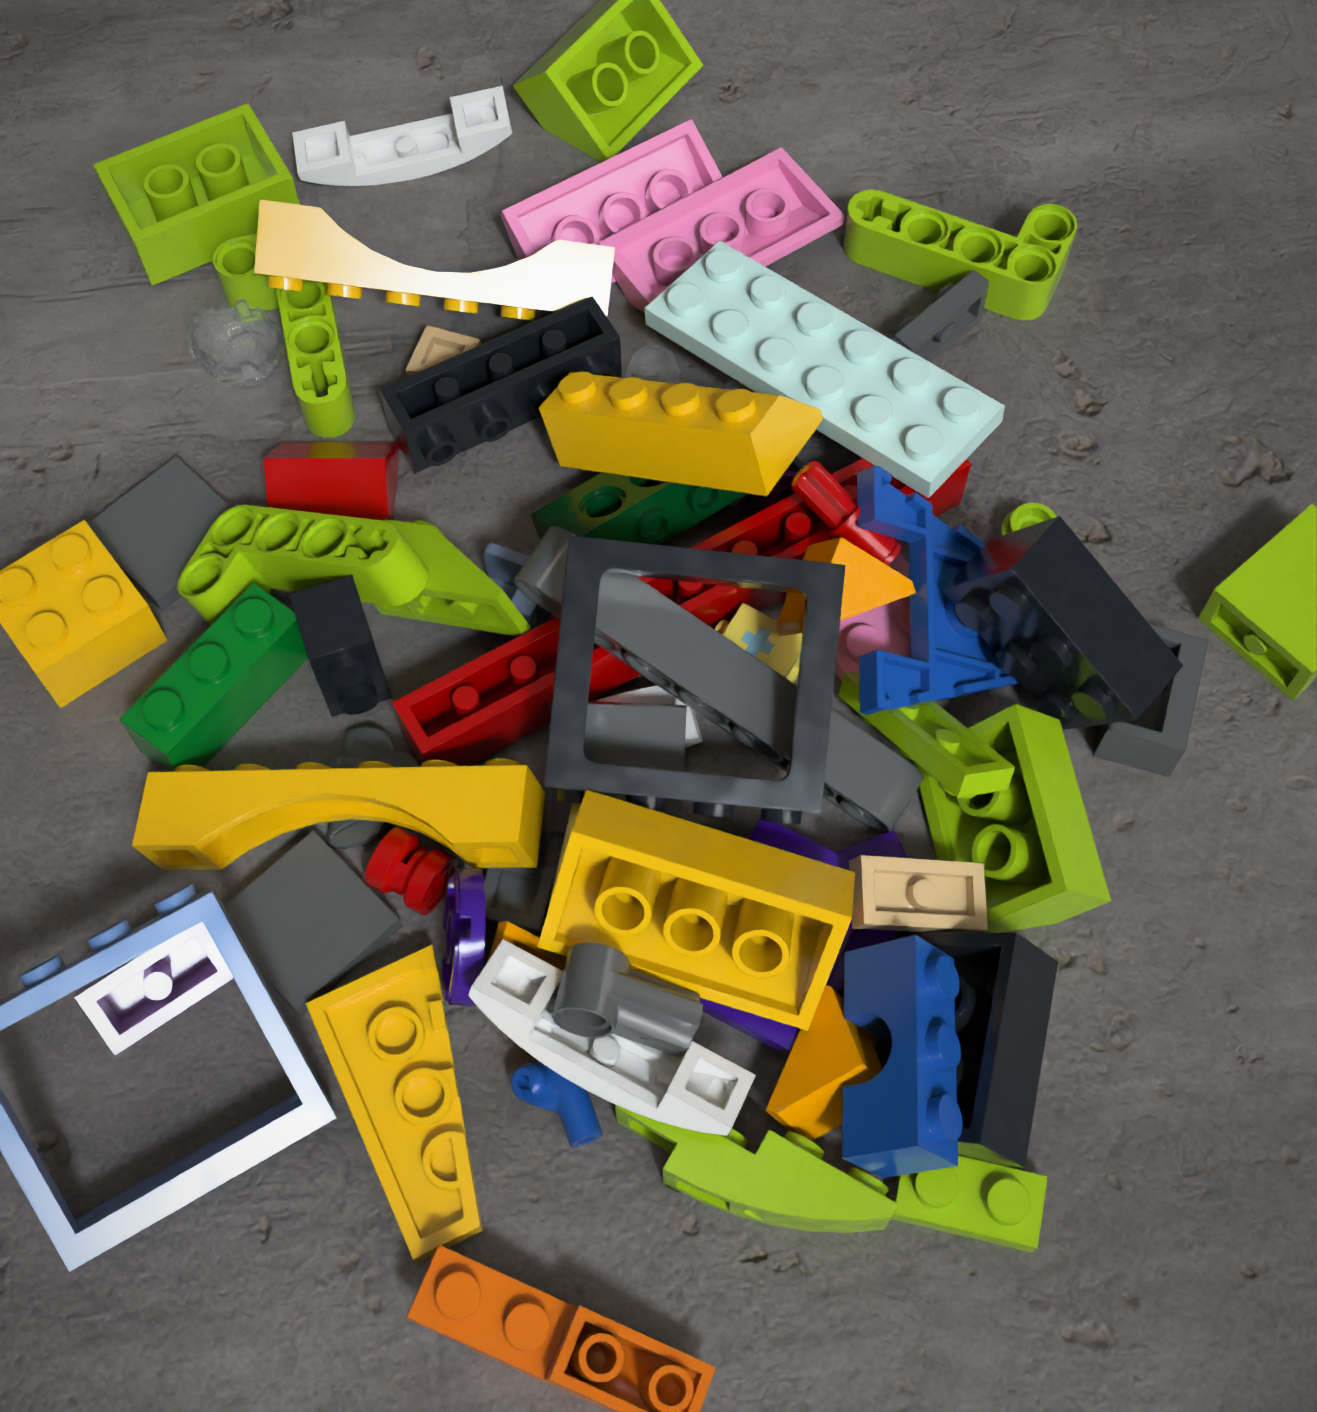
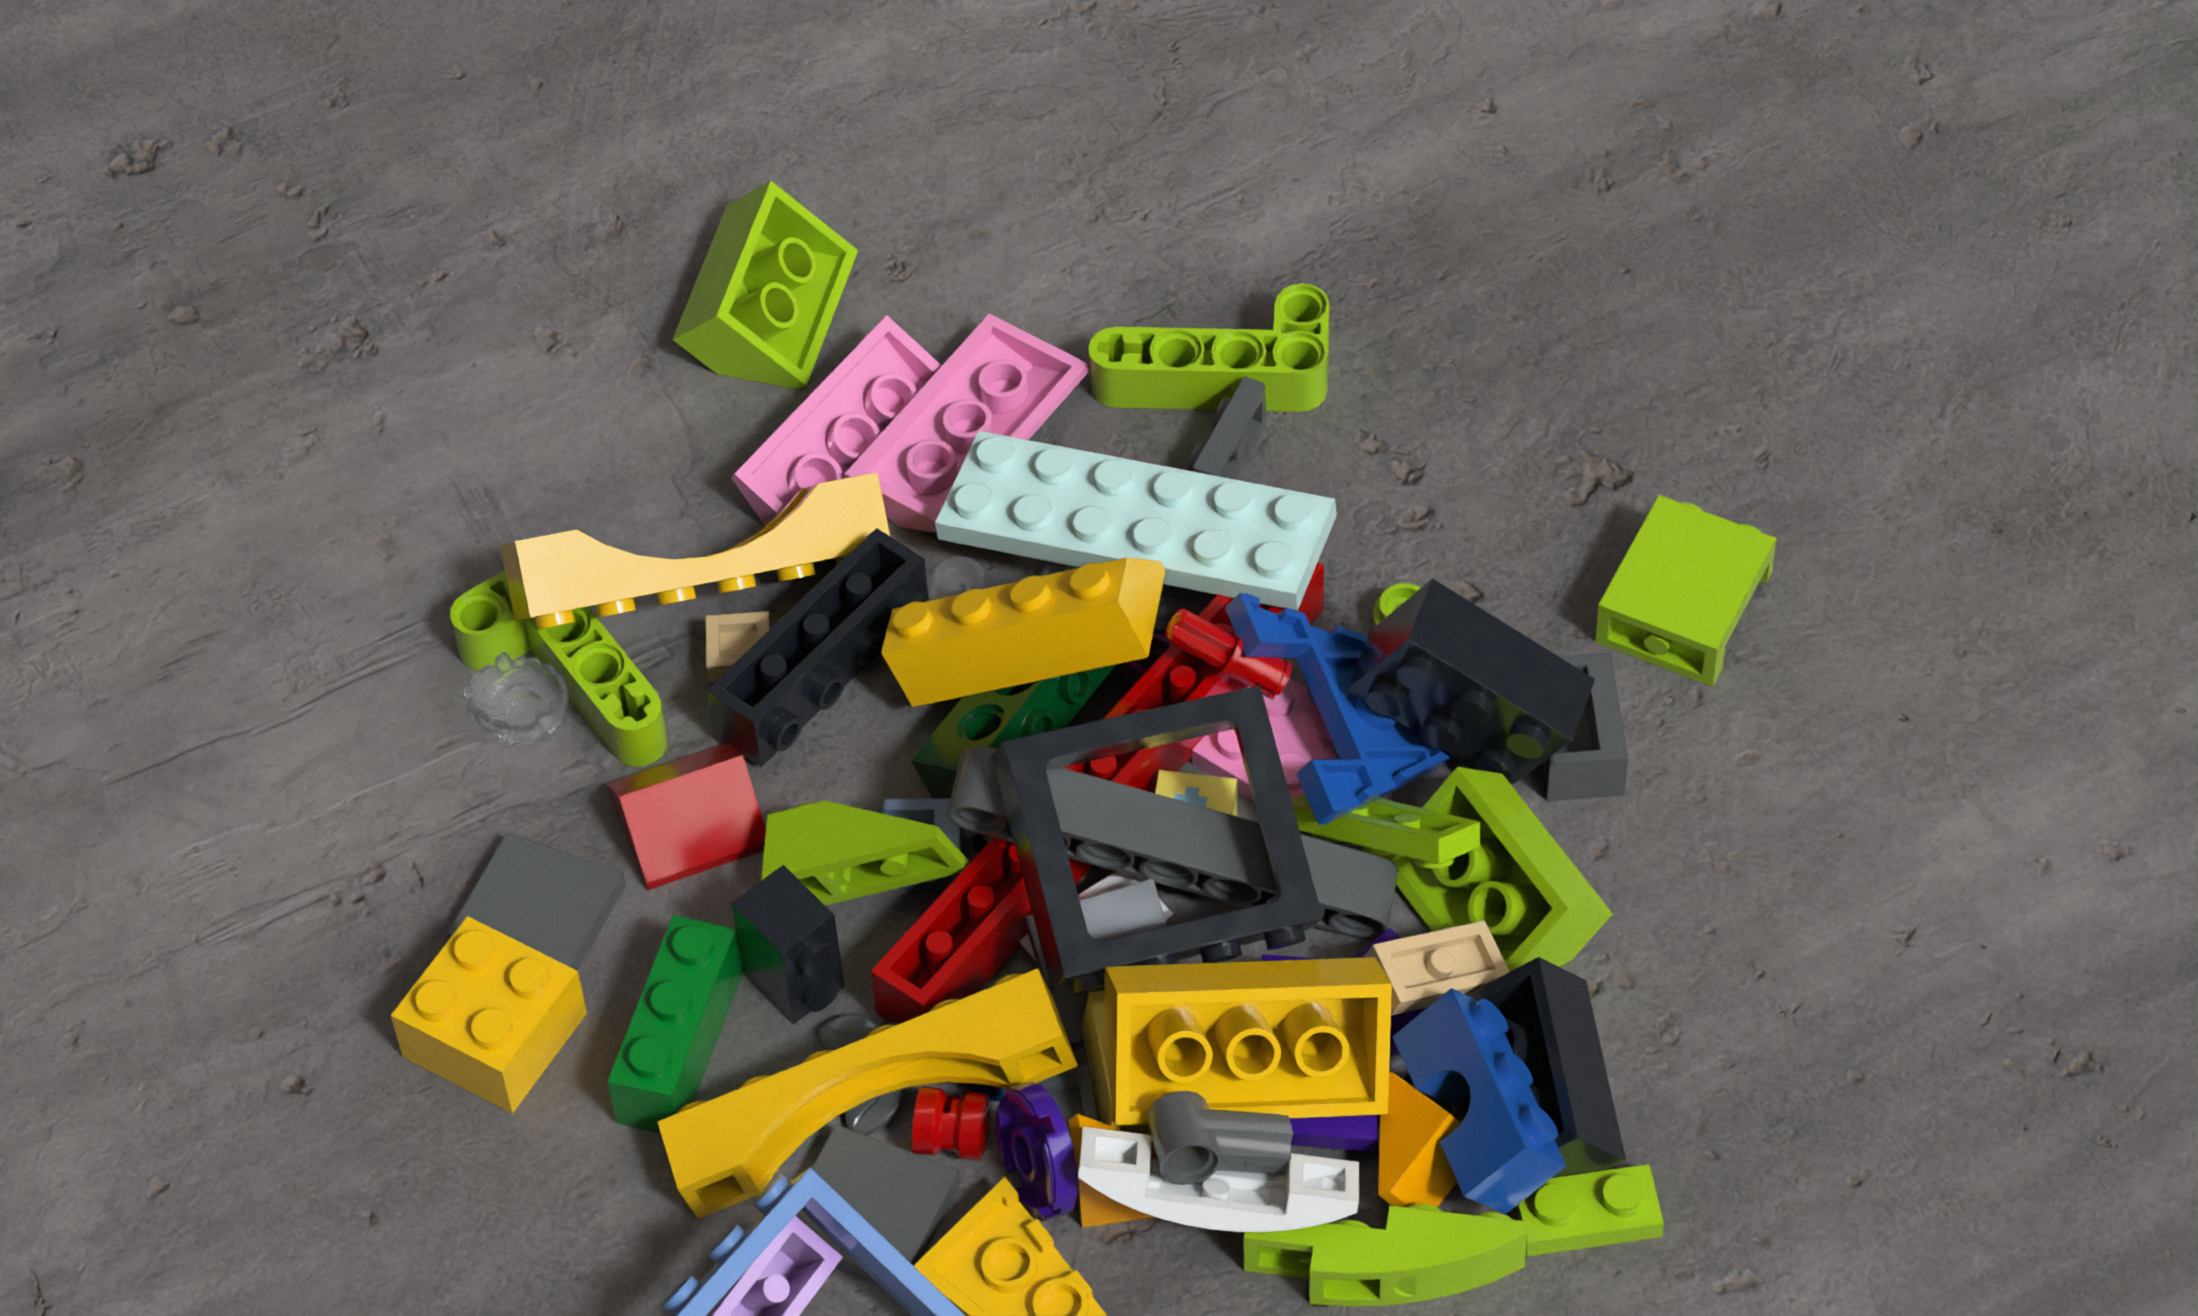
camera: 20 degrees left, 10 degrees down
(194, 190) = (394, 561): lime brick -> none
(295, 553) = (701, 875): lime beam -> none
(406, 150) = (586, 442): white slope -> none
(550, 1091) = (1183, 1260): blue arm -> none
(866, 584) = (1285, 707): light orange slope -> none

